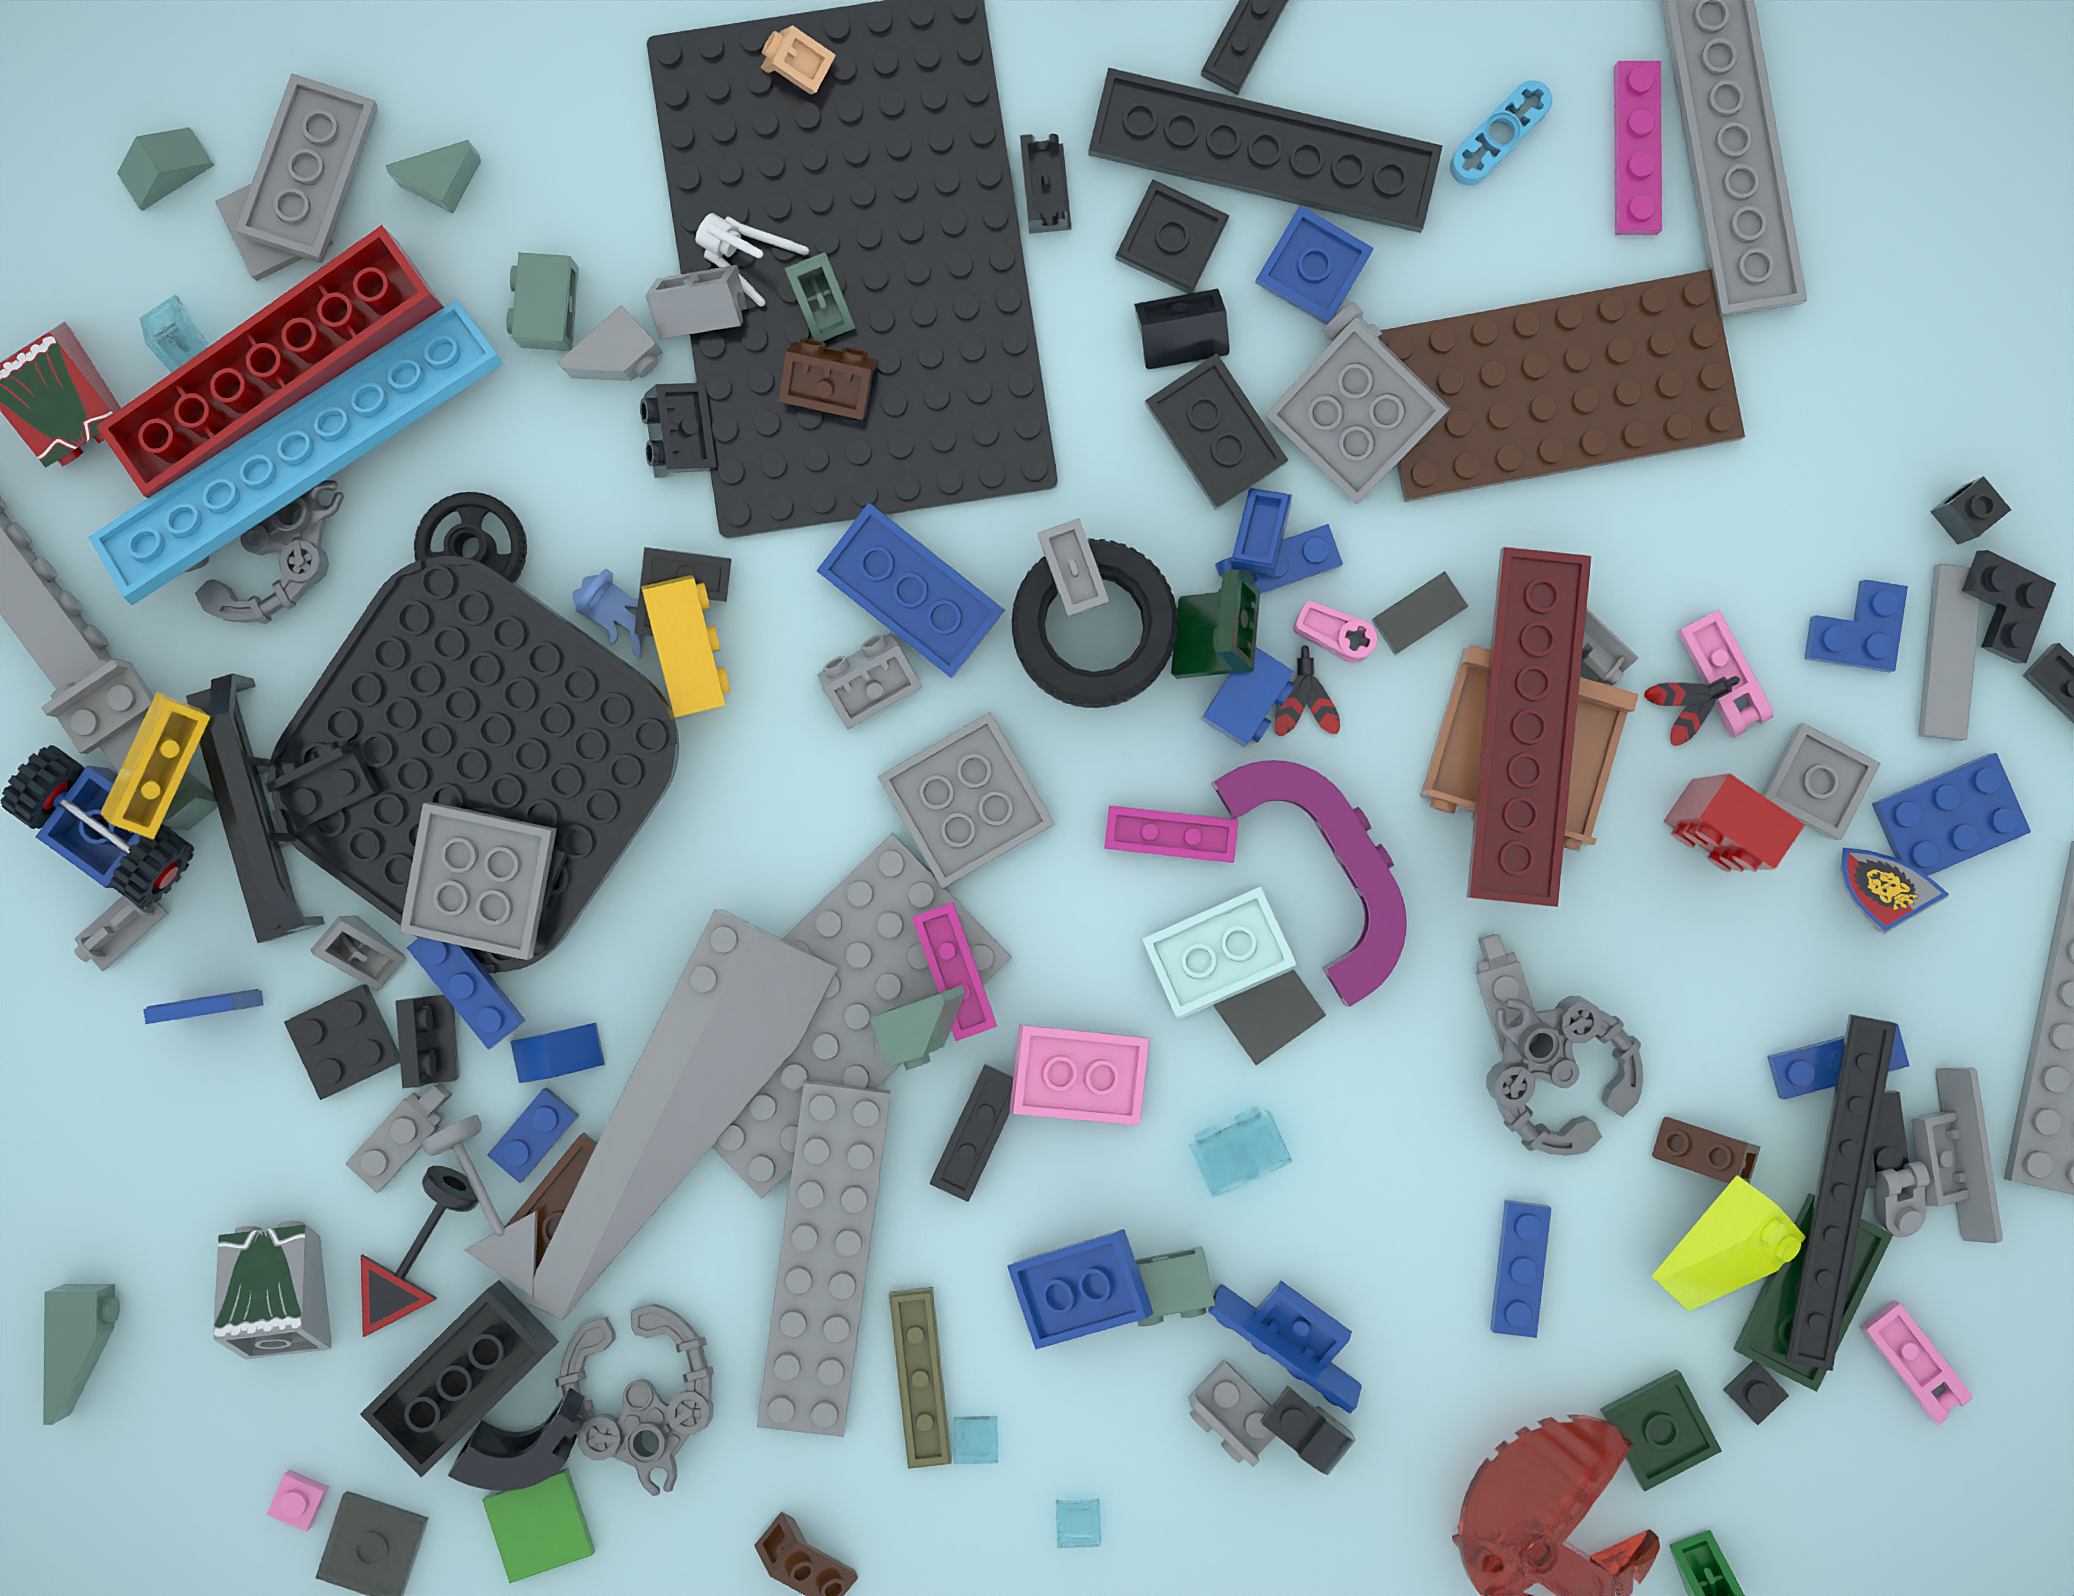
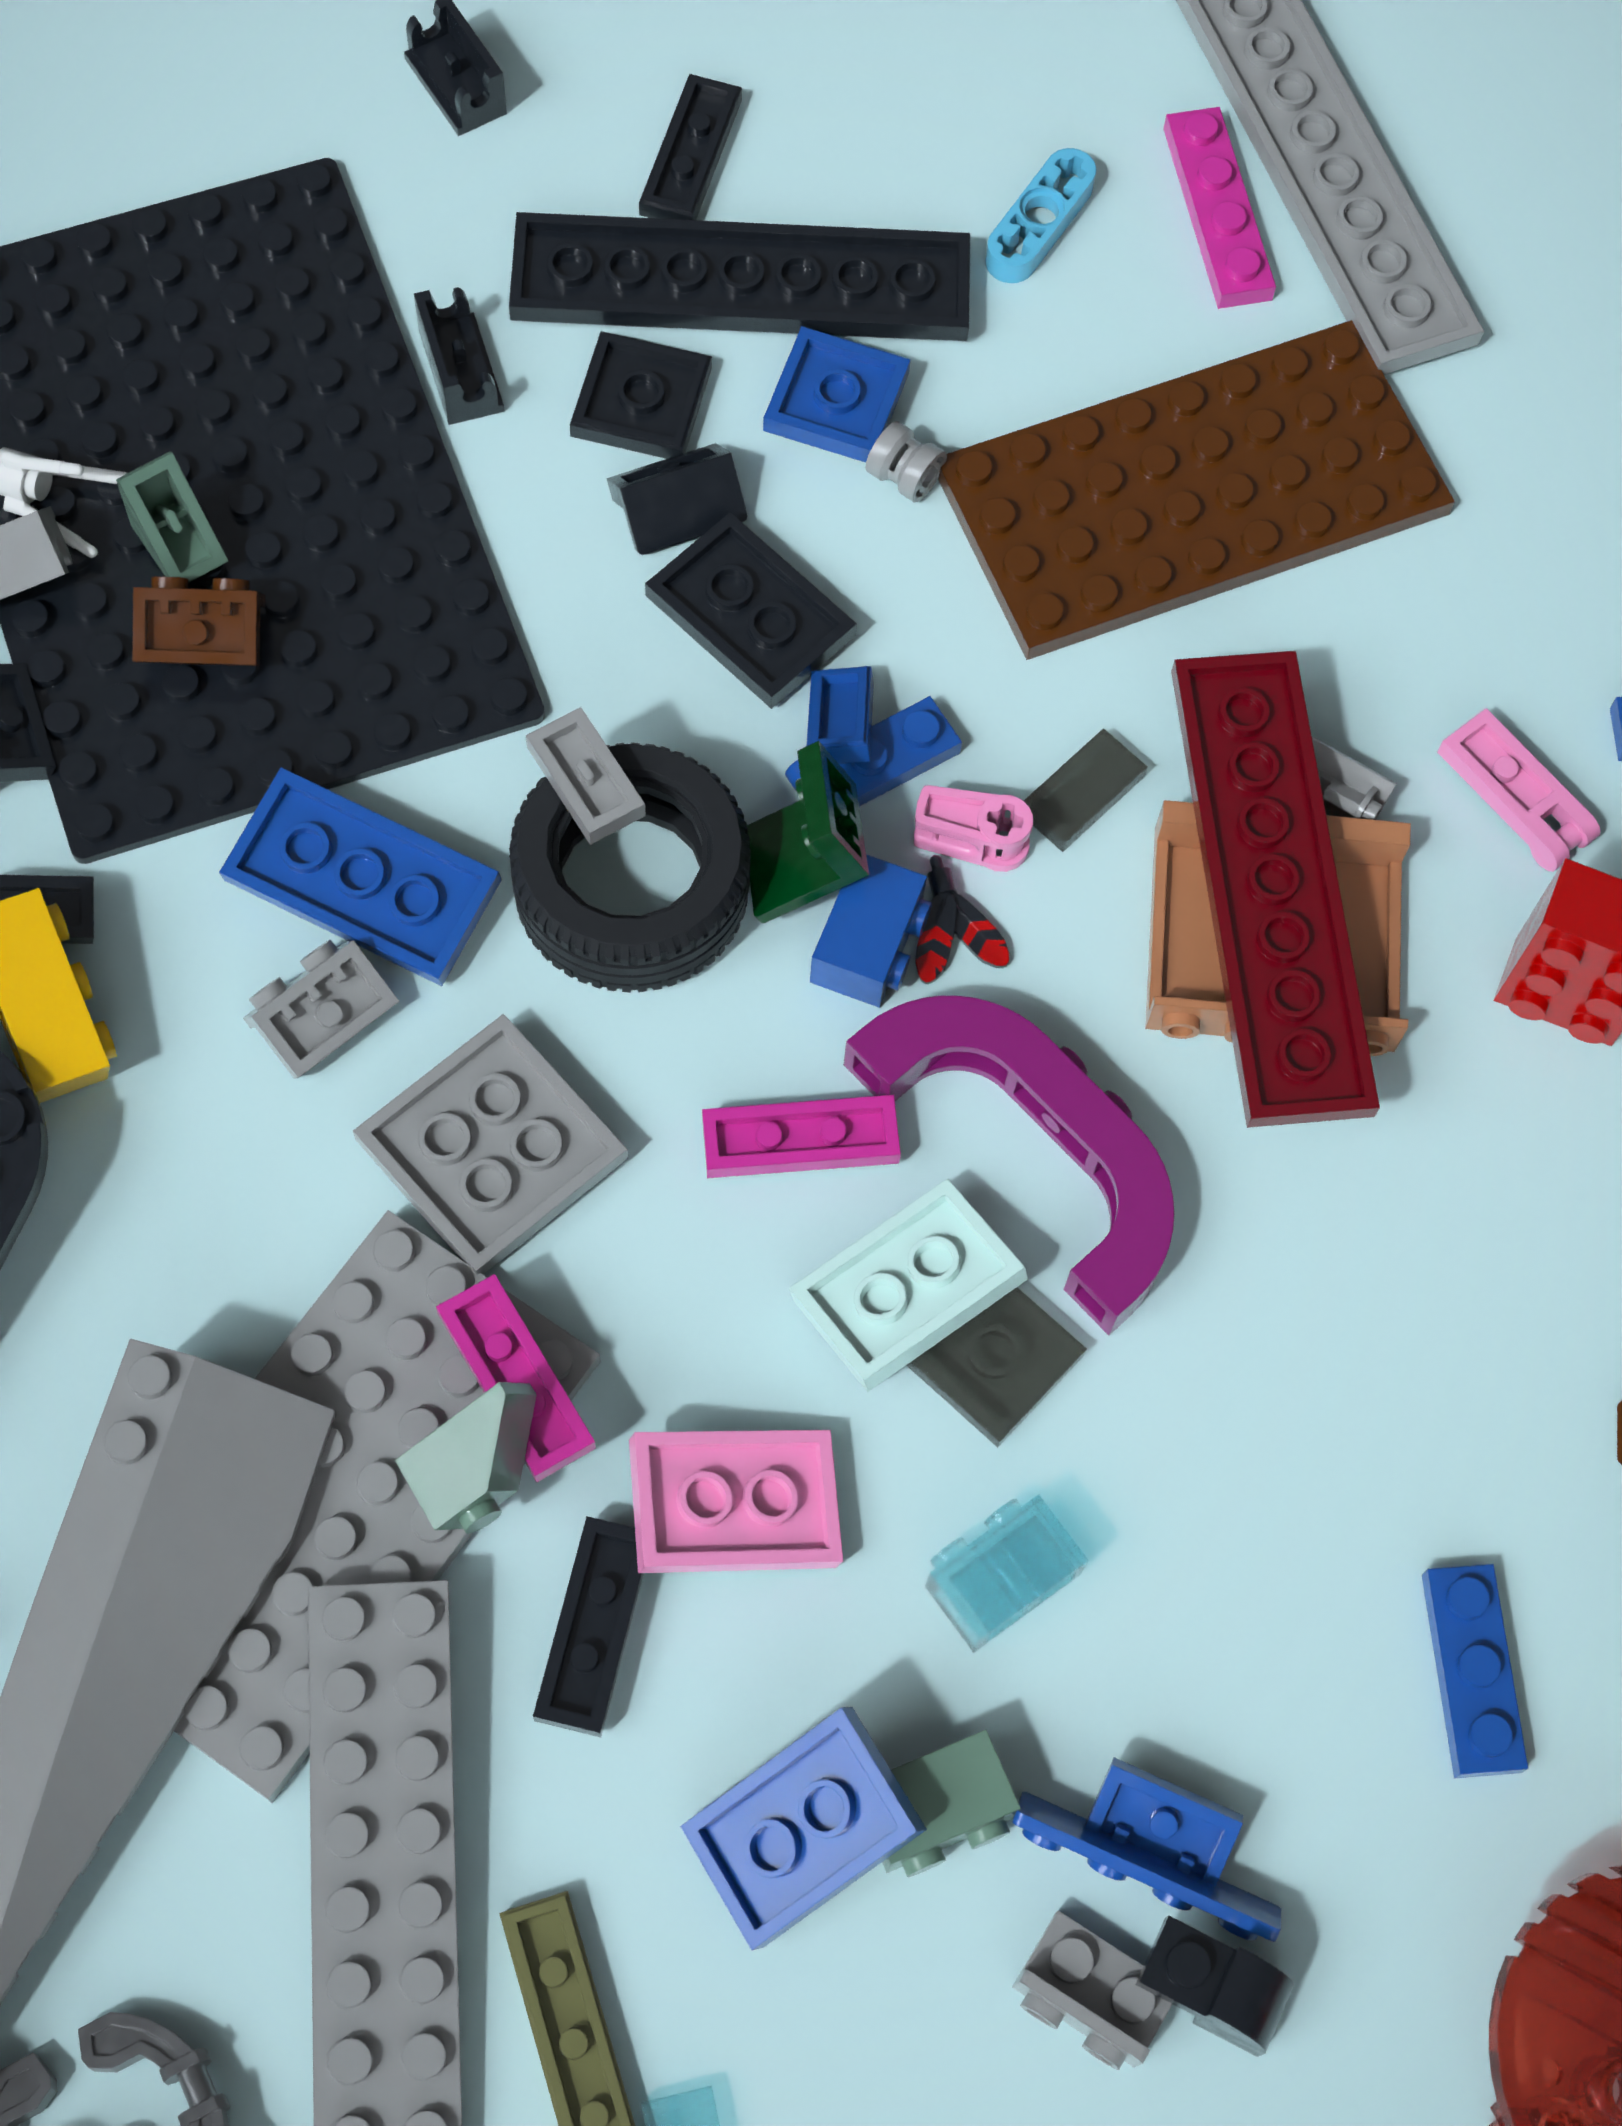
camera: 25 degrees left, 20 degrees down
(797, 58) = (100, 256): light nougat bracket -> none
(1357, 411) = (935, 544): light grey plate -> none
(1498, 980) = (1343, 1276): light grey hinge -> none
(1552, 1060) = (1431, 1336): flat silver piece -> none
(1699, 702) = (1490, 822): piece -> none

